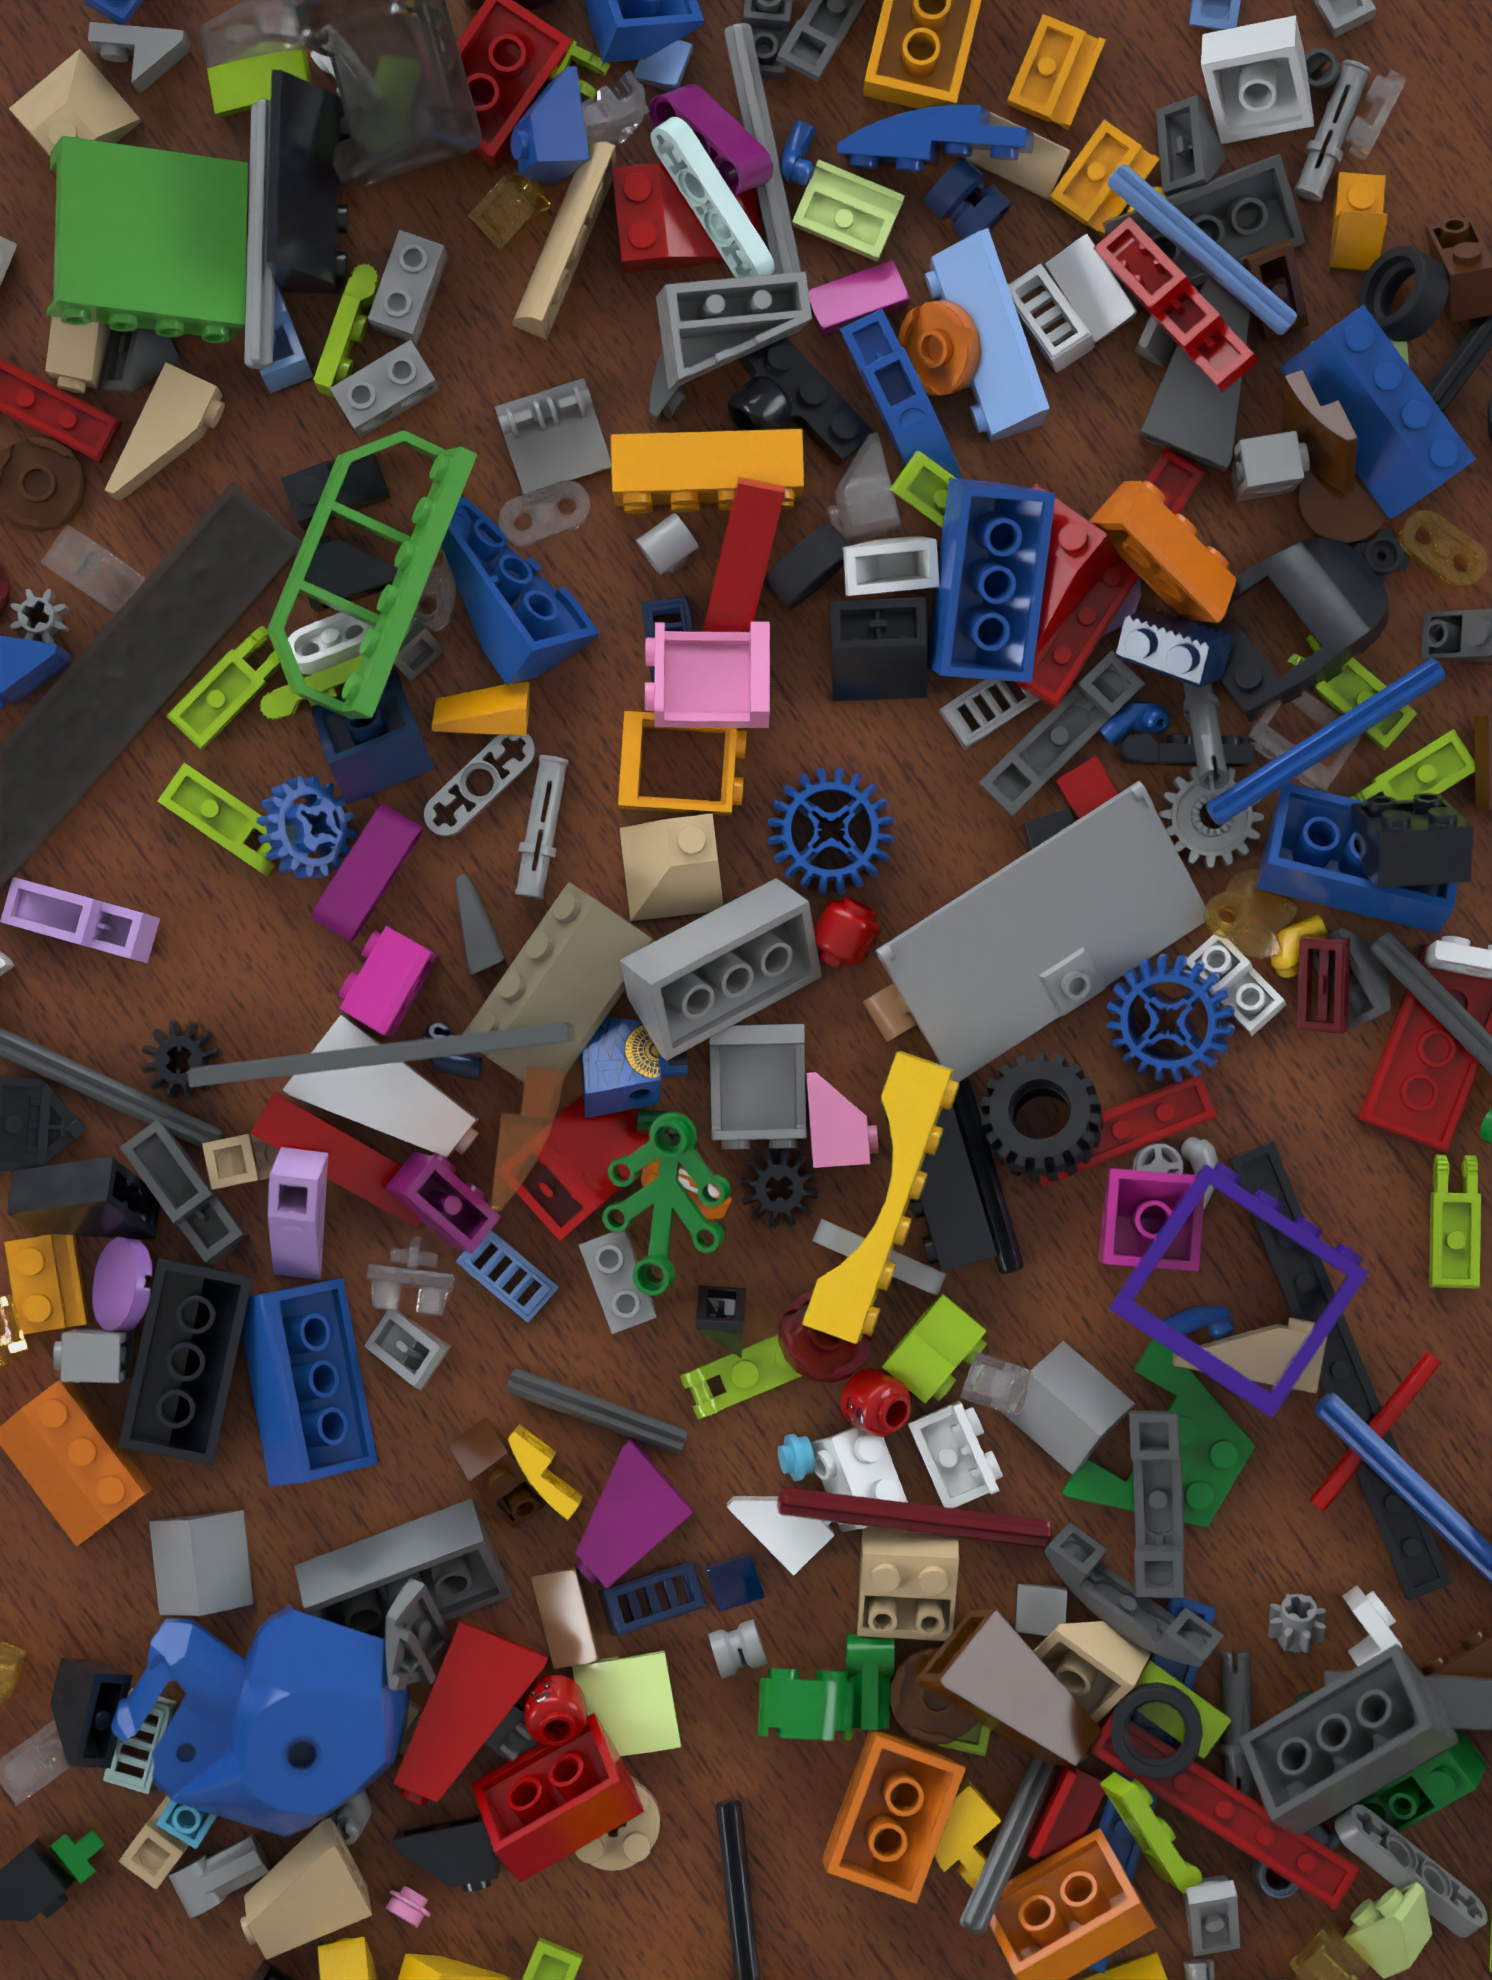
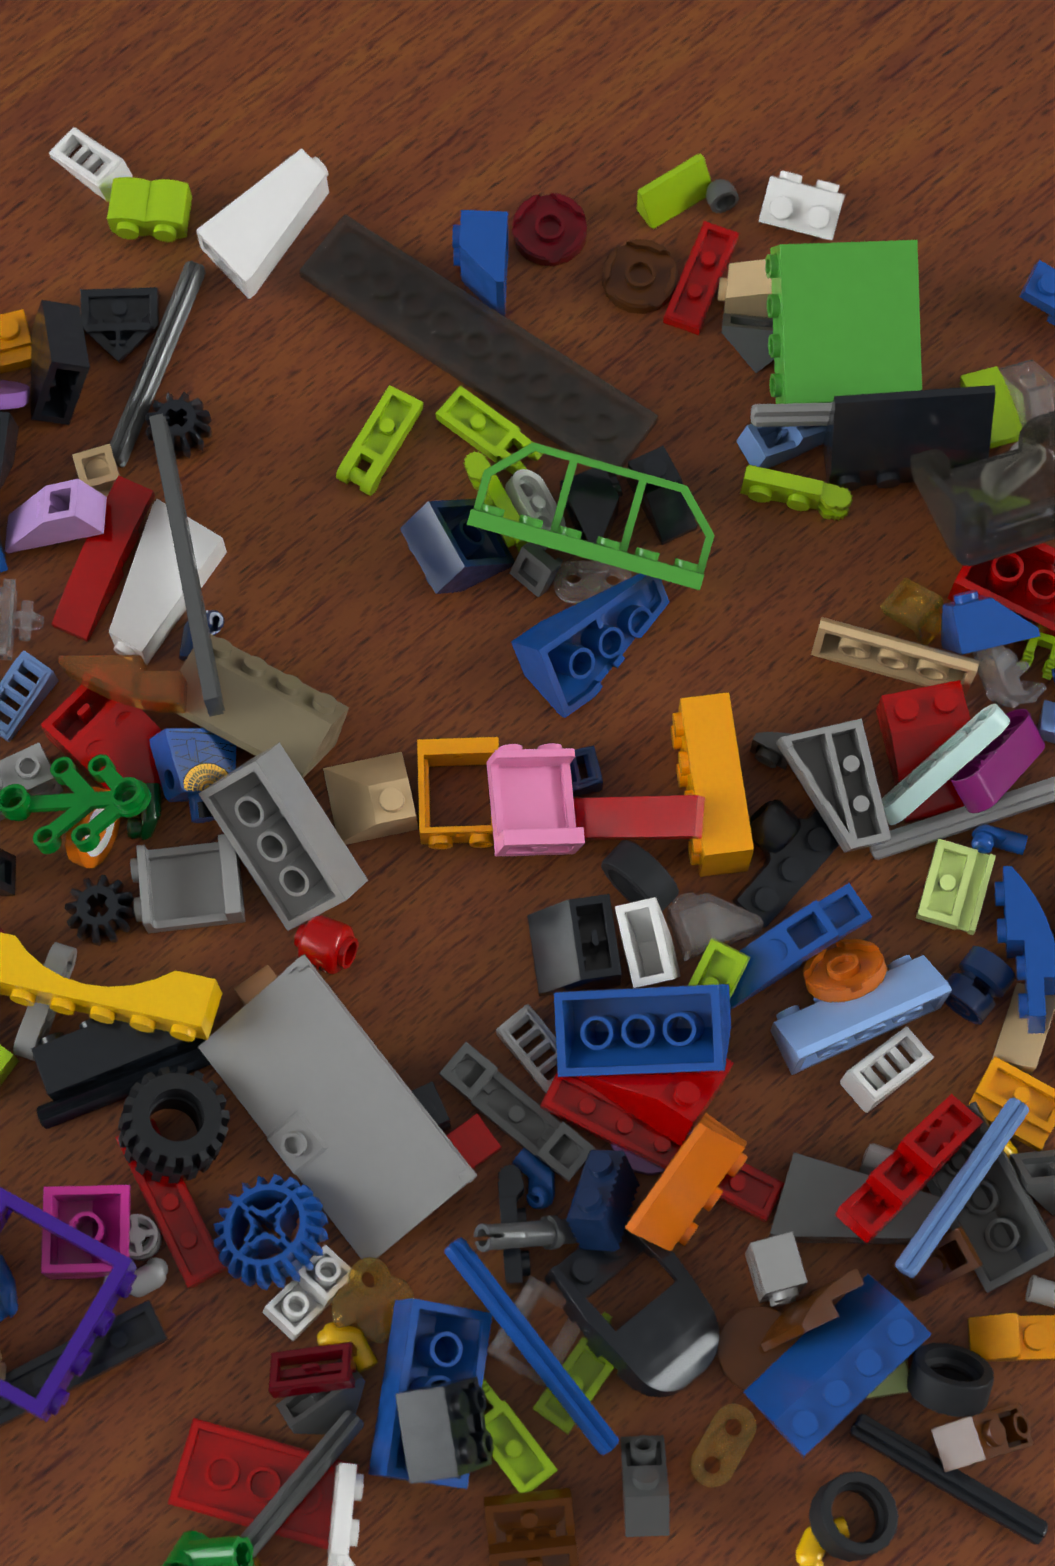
camera: 85 degrees right, 15 degrees down
(39, 604) = (540, 287): light grey gear -> none
(75, 104) = (949, 273): tan slope -> none
(80, 920) = (287, 340): lavender slope -> none
(92, 569) = (574, 320): clear slope -> none
(152, 48) = (1003, 317): light grey slope -> none
(169, 424) = (700, 364): tan slope -> none
(185, 1193) = (69, 432): dark grey slope -> none
(306, 827) = (382, 482): blue gear -> none
(367, 872) = (345, 552): magenta beam -> none
(385, 388) = (750, 525): light grey brick -> none
(386, 981) = (253, 575): dark pink slope -> none
(408, 287) = (837, 534): light grey brick -> none
(443, 1201) = (71, 630): magenta brick -> none
(462, 816) = (457, 645): light grey beam -> none
(479, 938) = (299, 644): dark grey slope -> none
(485, 711) = (488, 631): light orange slope -> none
(530, 882) = (395, 686): light grey pin -> none
(543, 510) = (662, 665): clear plate -> none
(554, 436) = (729, 661): light grey hinge -> none
(668, 545) = (642, 757): light grey piece -> none
(837, 1127) = (157, 949): bright pink slope -> none
(857, 296) = (877, 891): dark pink slope -> none
(859, 802) = (425, 934): blue gear -> none
(1091, 288) = (915, 1102): white slope -> none
(1193, 835) = (432, 1253): light grey gear -> none
(1385, 543) = (722, 1390): black plate -> none
(1455, 1227) = (97, 1517): lime hinge -> none

